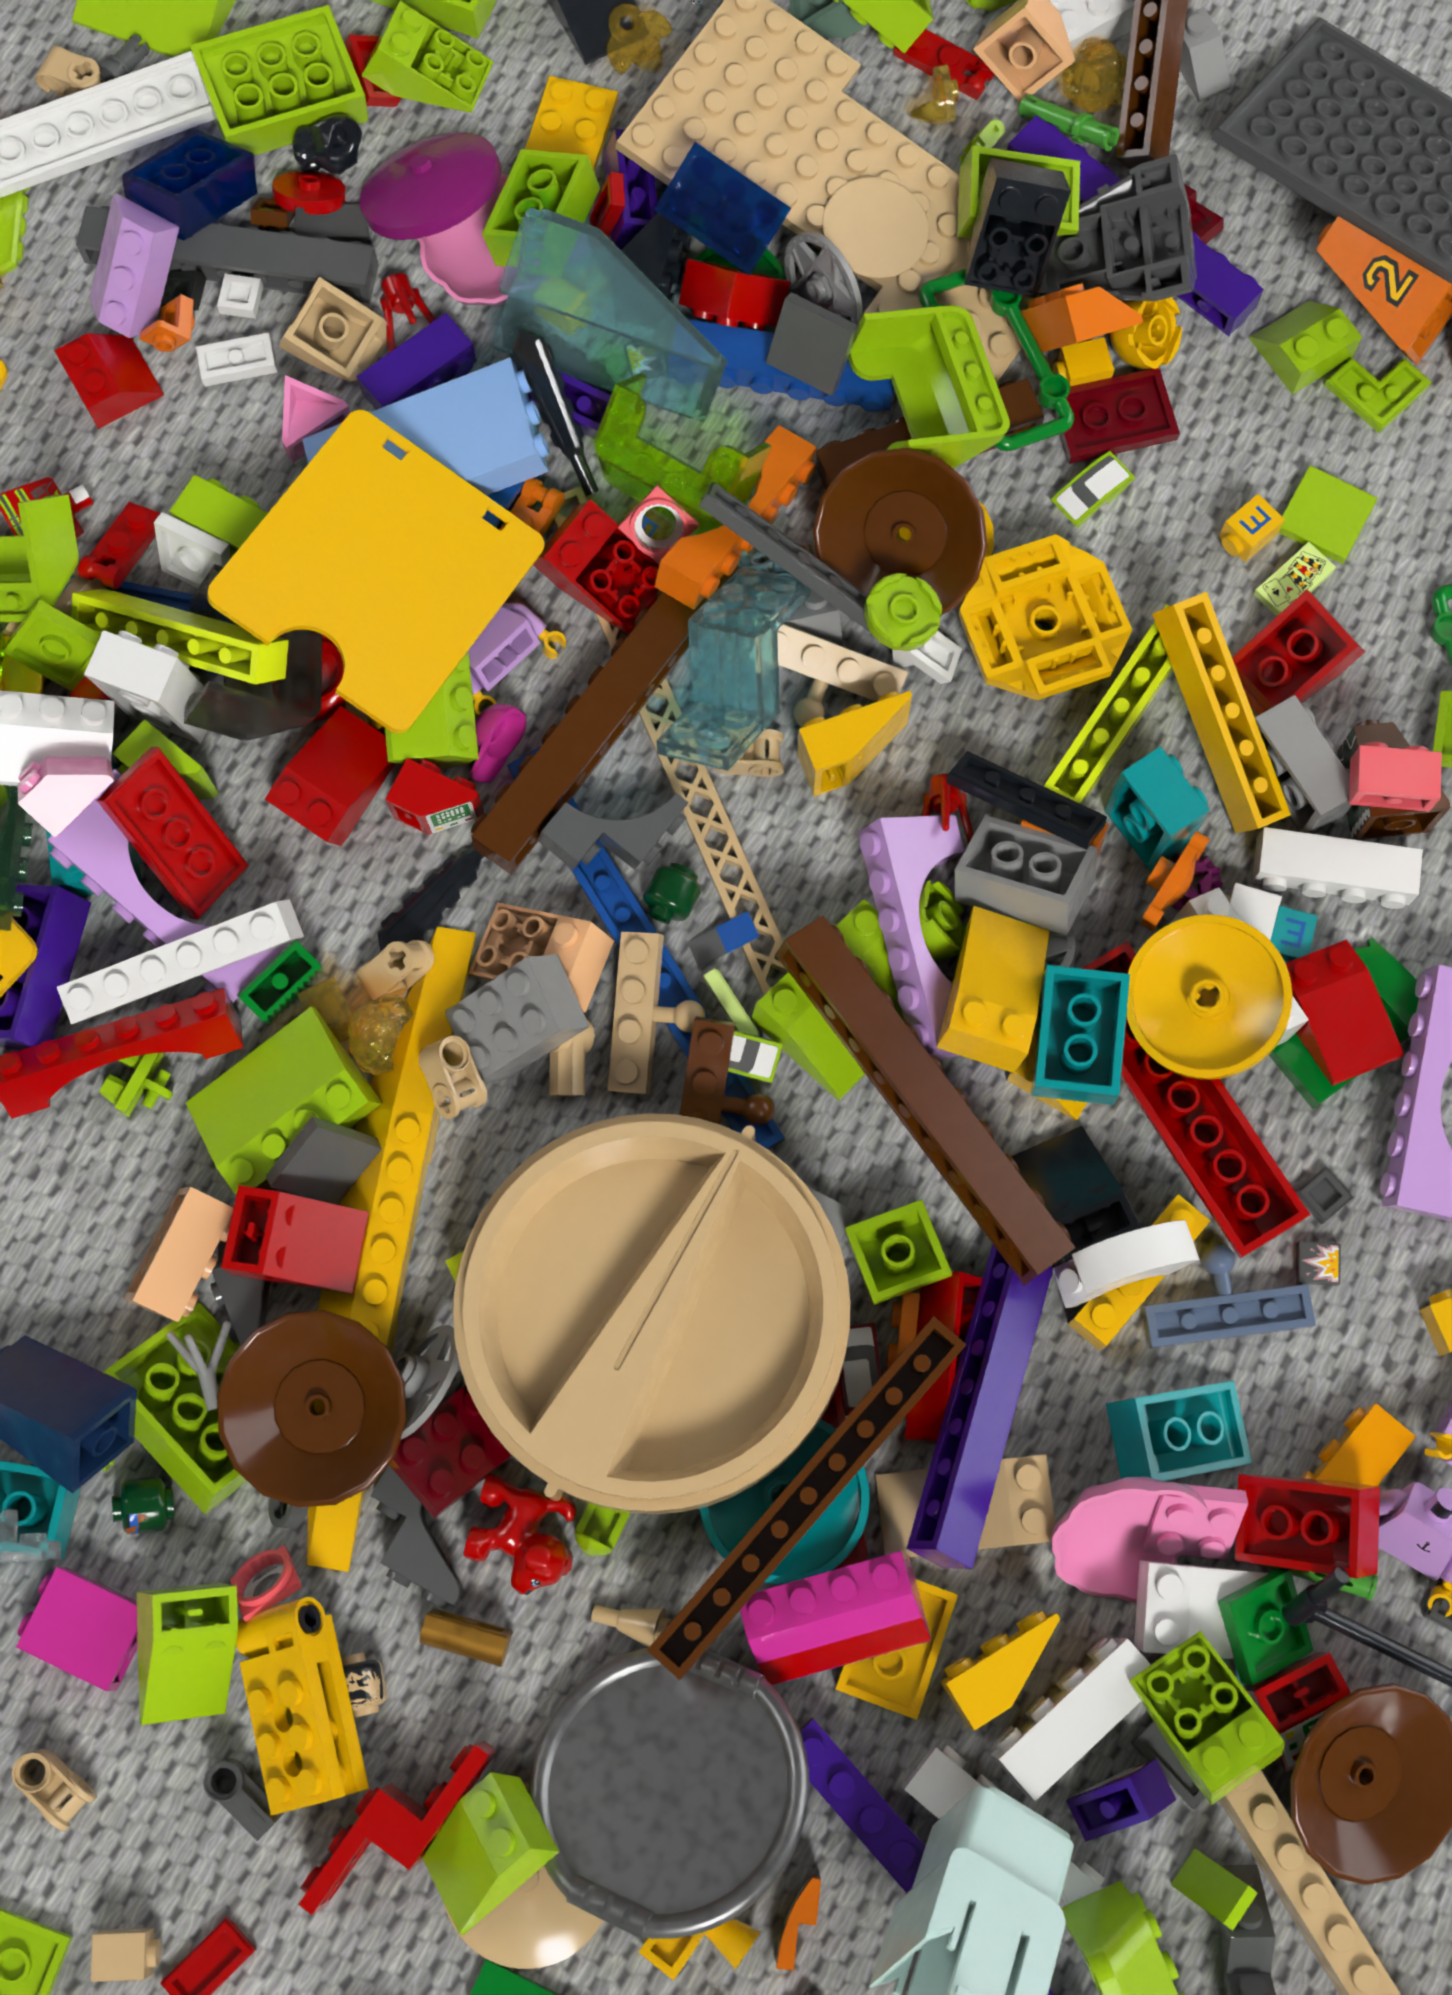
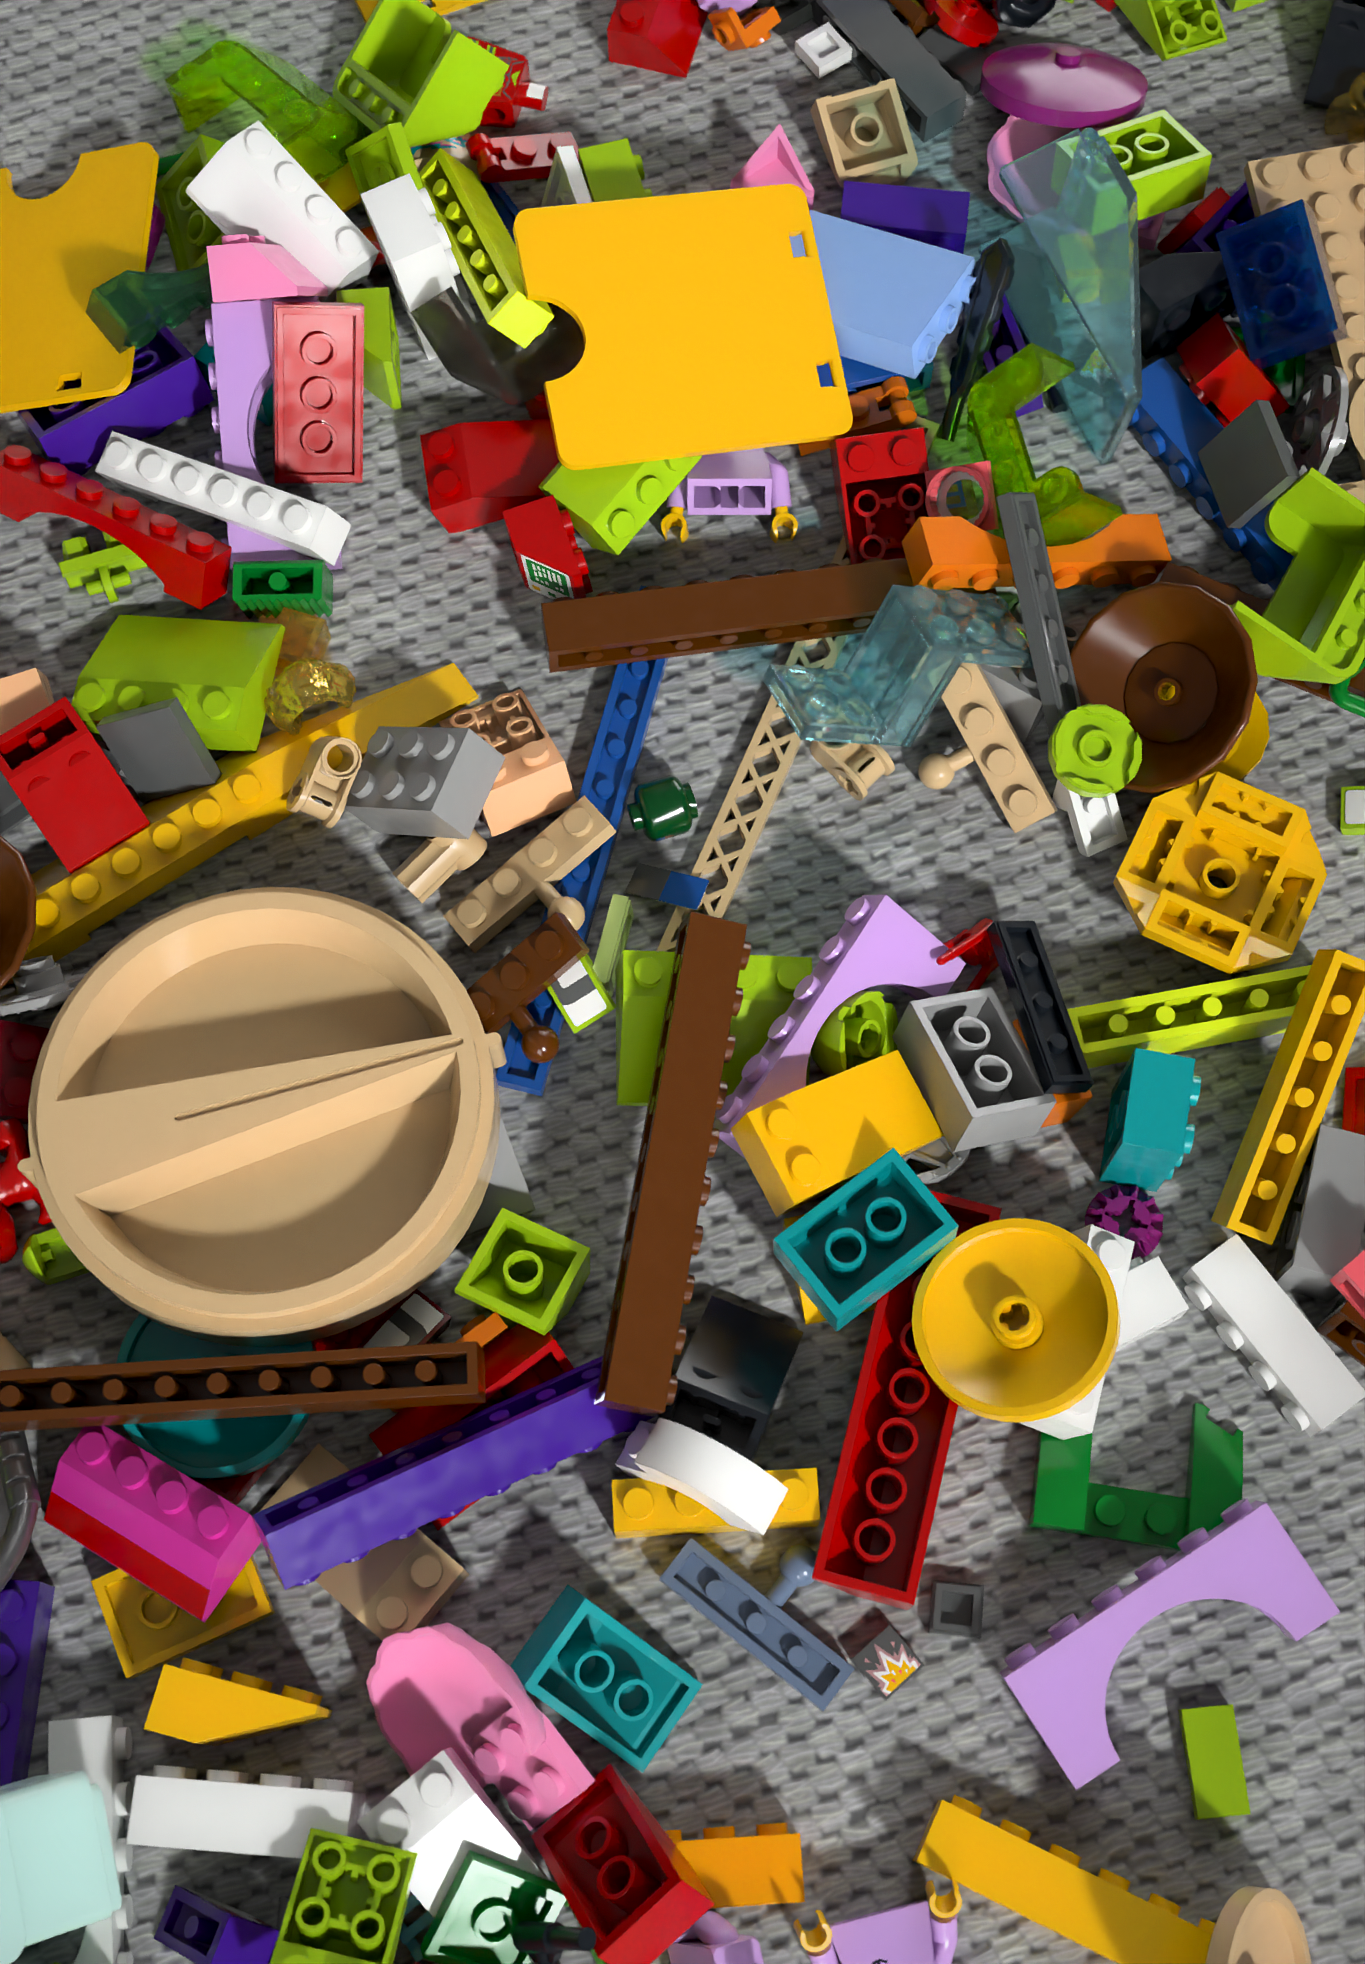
camera: 45 degrees right, 5 degrees down
(236, 359) = (768, 95): white plate -> none
(396, 968) = (382, 661): tan piece -> none
(401, 298) = (947, 157): red plant -> none
(424, 909) = (456, 640): black sword -> none
(498, 734) = (652, 551): dark pink cap -> none
(573, 119) = (1243, 132): yellow plate -> none
(575, 834) = (677, 736): dark grey arch -> none
(842, 746) = (943, 822): yellow slope -> none
(1172, 880) = (1098, 1194): orange piece -> none
(1293, 933) = (1159, 1354): teal brick -> none
(1346, 1016) = (1134, 1459): red slope -> none

